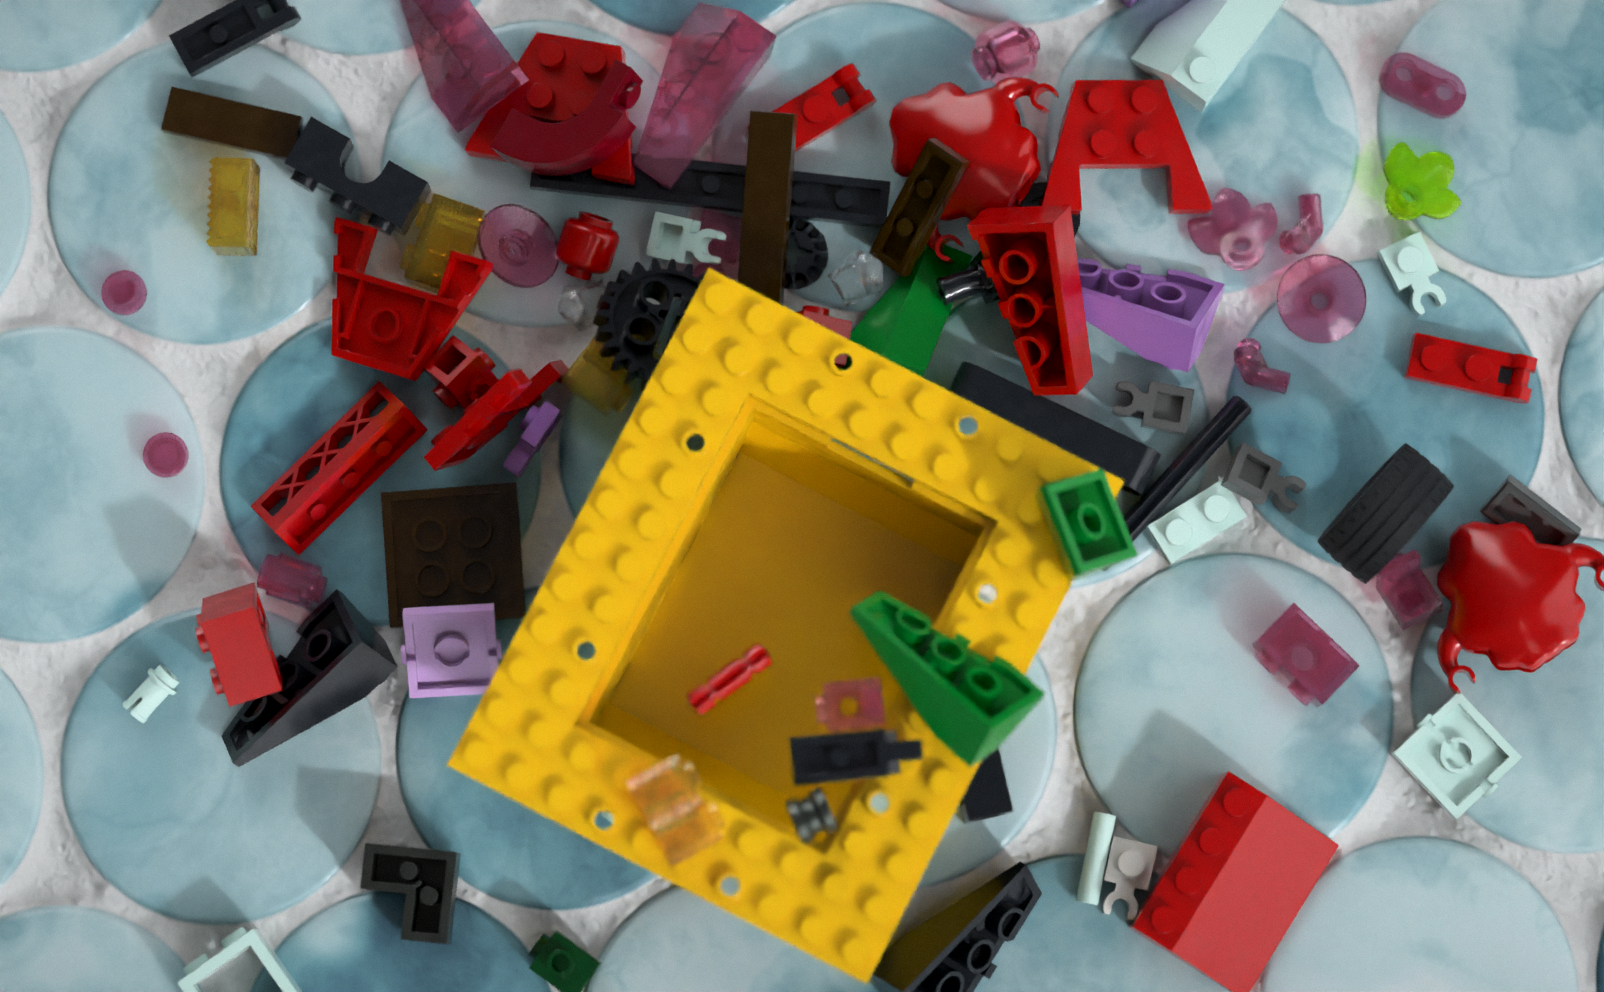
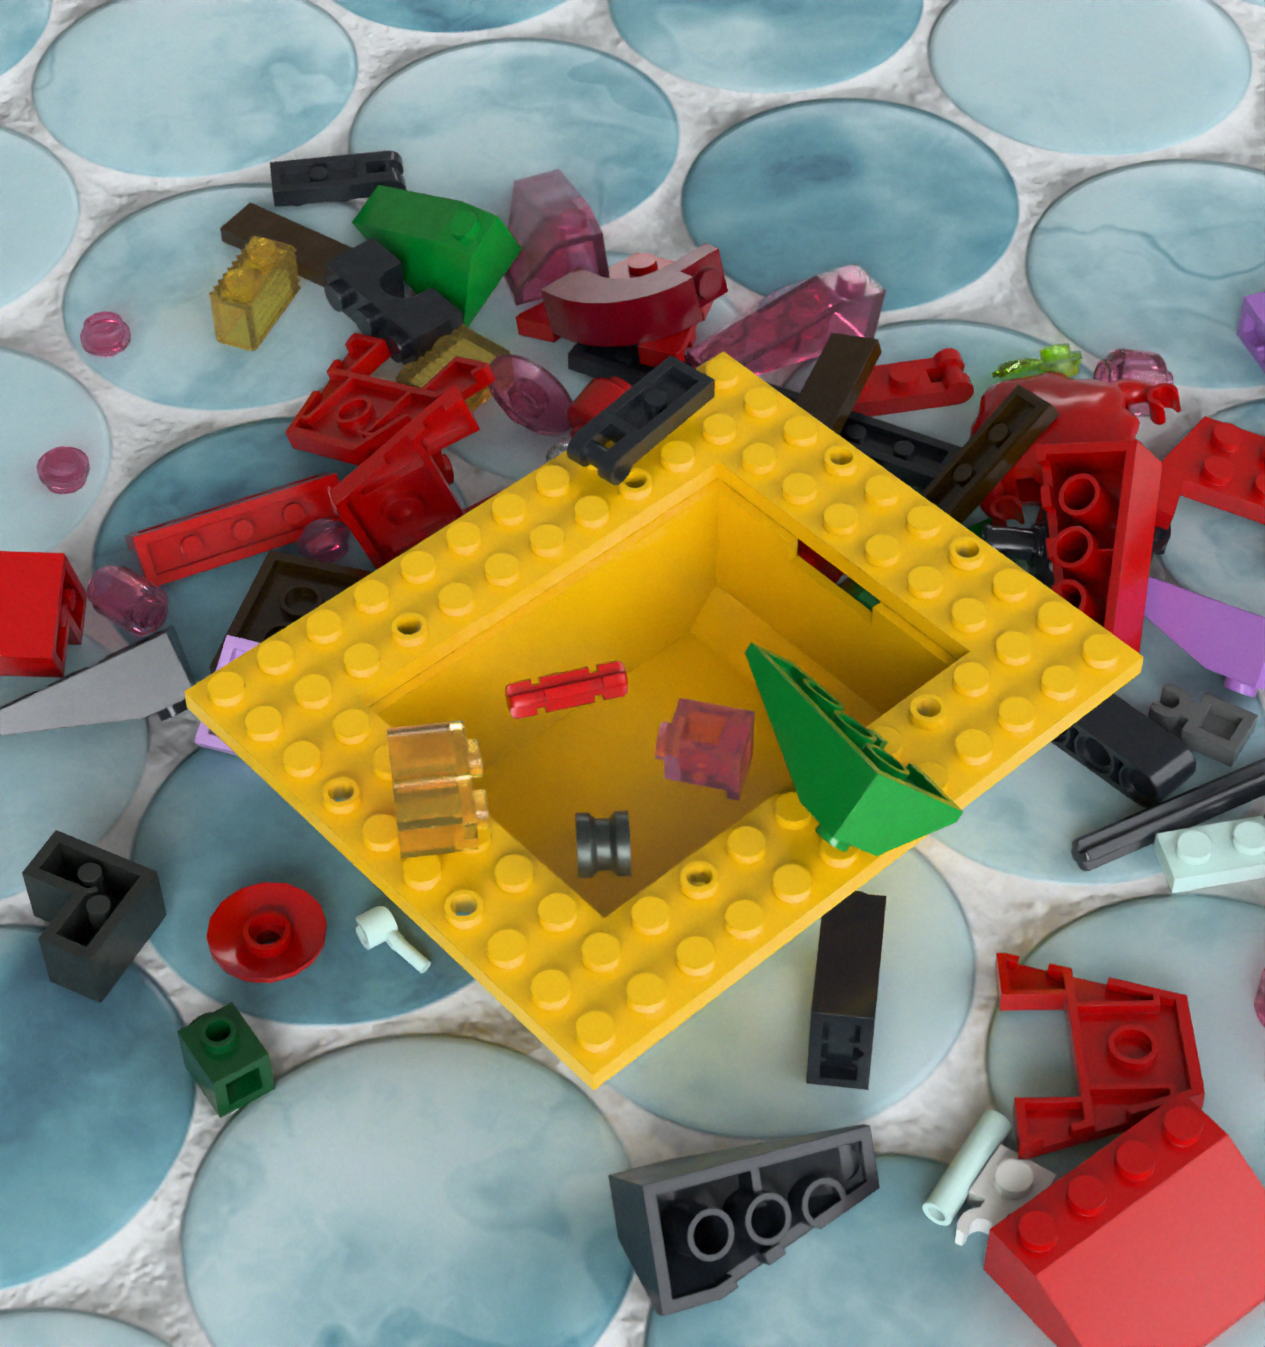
camera: 25 degrees right, 35 degrees down
(372, 100) = (441, 244): none -> green wedge
(414, 464) = (324, 540): none -> clear pink plate
(528, 870) = (263, 915): none -> red dish
(682, 388) = (641, 419): none -> black plate
(850, 756) = (687, 802): black hinge -> none
(930, 57) = (1052, 359): none -> clear neon green plate
(1085, 524) = (1075, 658): green slope -> none
(1177, 728) = (1126, 1049): none -> red wing

